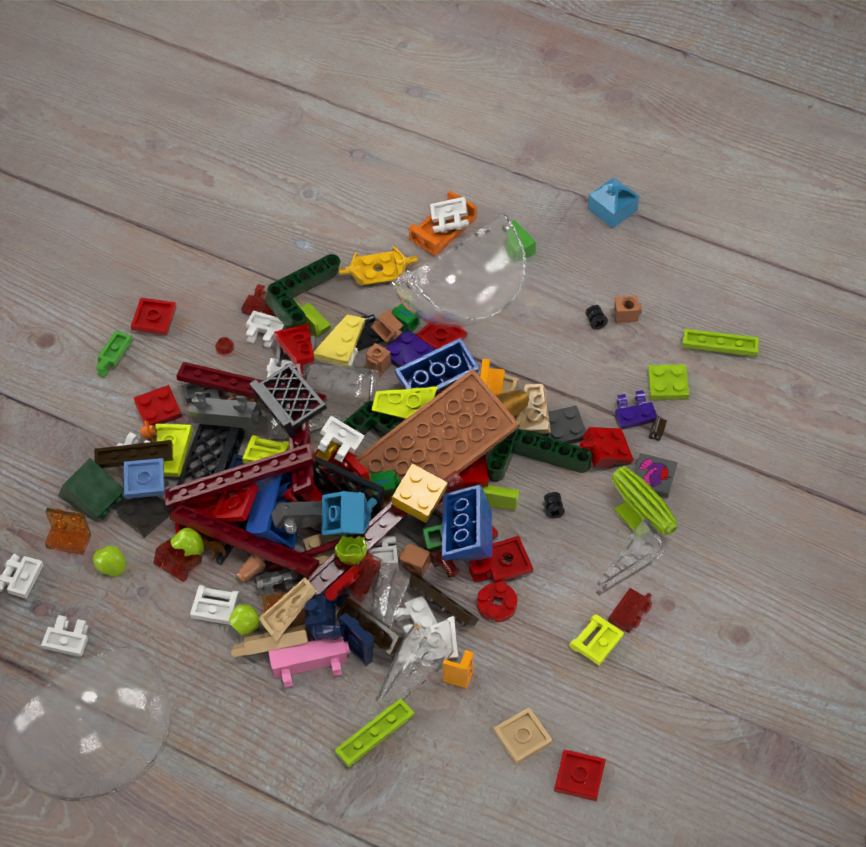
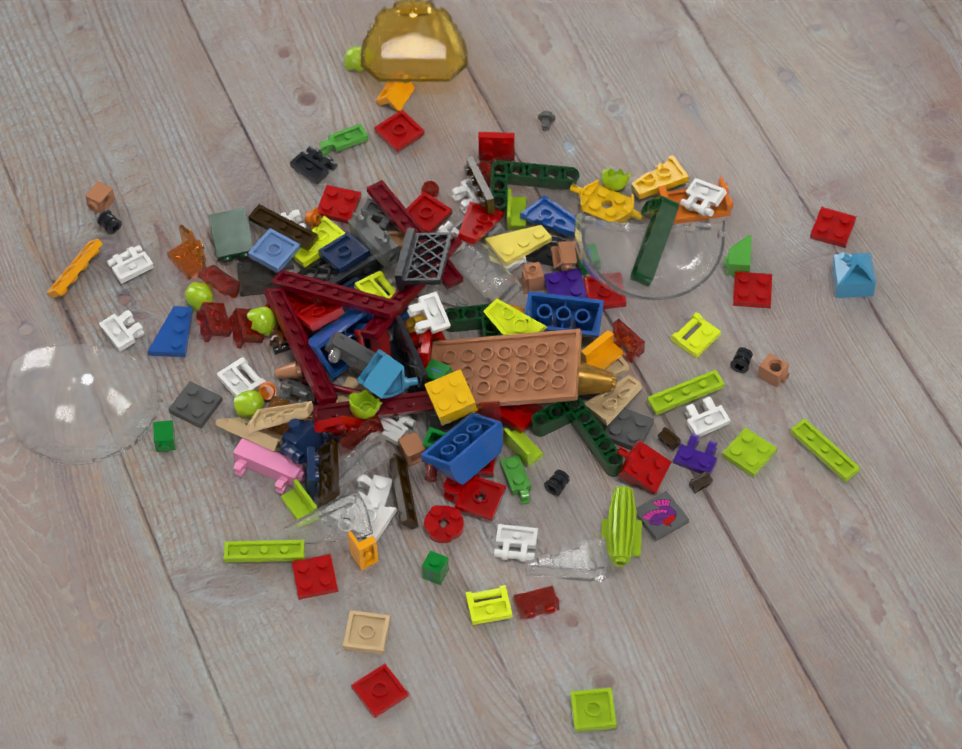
camera: 40 degrees right, 0 degrees up
(61, 281) = (352, 59): none -> lime hair
(105, 393) = (310, 167): none -> black plate
(107, 238) = (413, 44): none -> clear yellow windscreen
(116, 608) = (174, 334): none -> blue wing
(119, 287) = (395, 94): none -> light orange panel
(119, 534) = (220, 280): none -> clear red bracket
(142, 573) = (213, 320): none -> clear red bracket
(193, 654) = (195, 404): none -> dark grey plate
(194, 699) = (164, 436): none -> green brick
(205, 441) = (343, 252): none -> dark blue plate
(242, 362) = (429, 212): none -> red plate
(247, 596) = (267, 390): none -> orange plate
(250, 275) = (496, 144): none -> red plate
(266, 232) = (546, 117): none -> dark grey plate
(270, 313) = (479, 184): none -> plate
(343, 303) = (550, 215): none -> blue wing
(366, 670) = (298, 501): none -> lime panel
(367, 245) = (615, 179): none -> lime hair
(400, 218) = (667, 174): none -> yellow wing
(435, 722) = (314, 576): none -> red plate
(444, 243) = (662, 215): none -> dark green beam
(503, 355) = (630, 339): none -> clear red plate
(518, 524) = (516, 477): none -> bright green plate
(528, 641) = (435, 567): none -> green brick
(548, 322) = (700, 339): none -> neon yellow plate
(549, 261) = (752, 289): none -> red plate
(561, 178) = (833, 227): none -> red plate
(566, 569) = (518, 537): none -> white plate
(579, 369) = (685, 392): none -> lime plate
(602, 412) = (669, 439): none -> dark brown piece
(617, 380) = (706, 422): none -> white plate
(756, 661) = (593, 710): none -> lime plate

